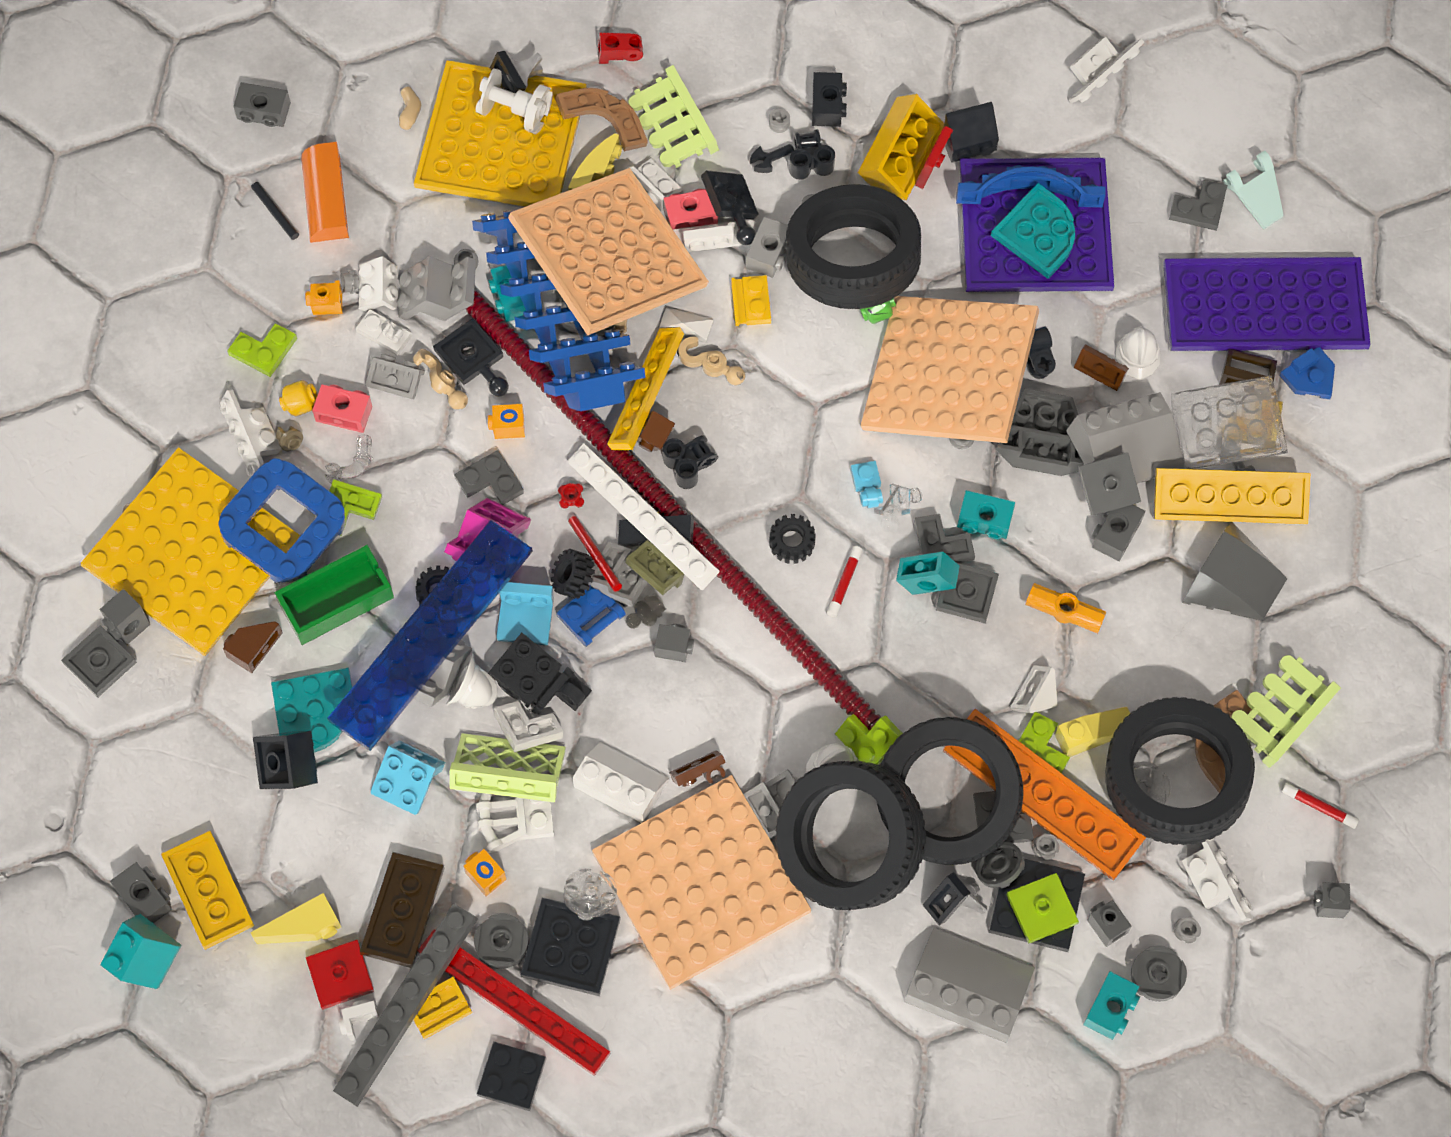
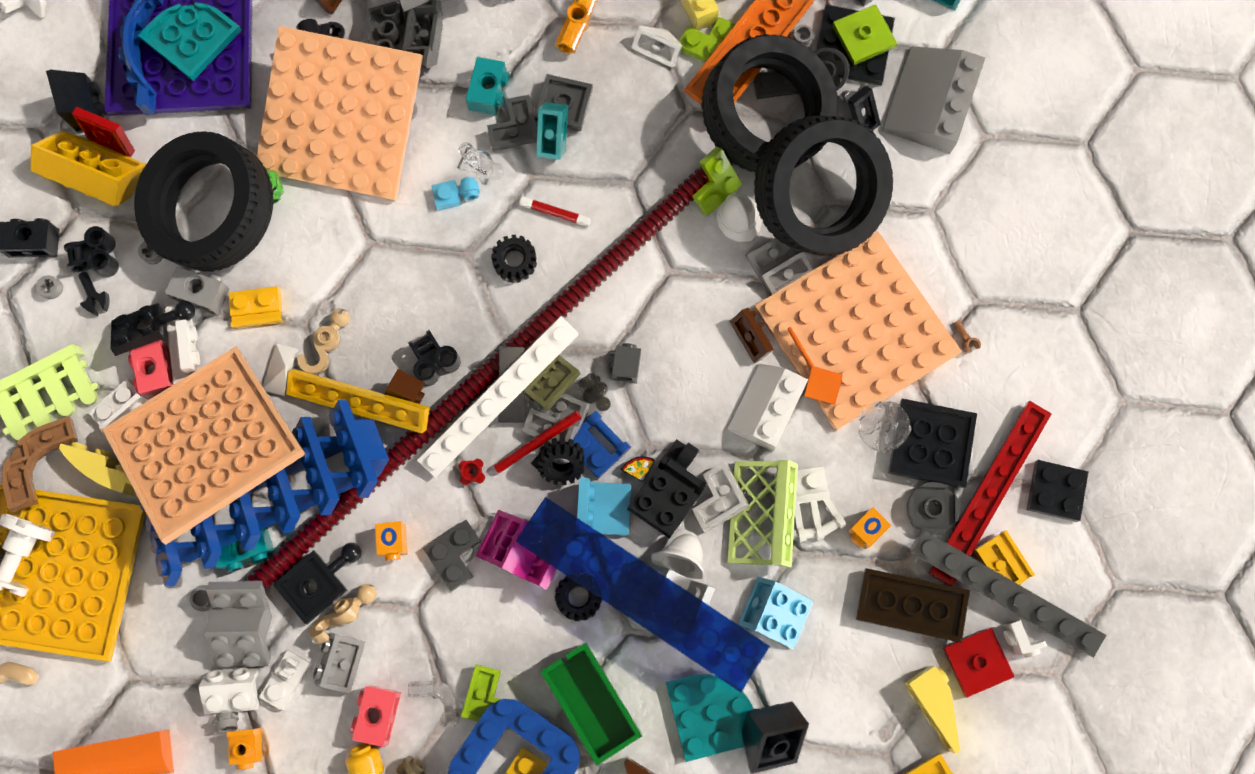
camera: 90 degrees left, 10 degrees up
(565, 652) = (638, 467): none -> tile
(640, 834) = (822, 383): none -> orange piece
(686, 996) = (967, 339): none -> medium nougat hand

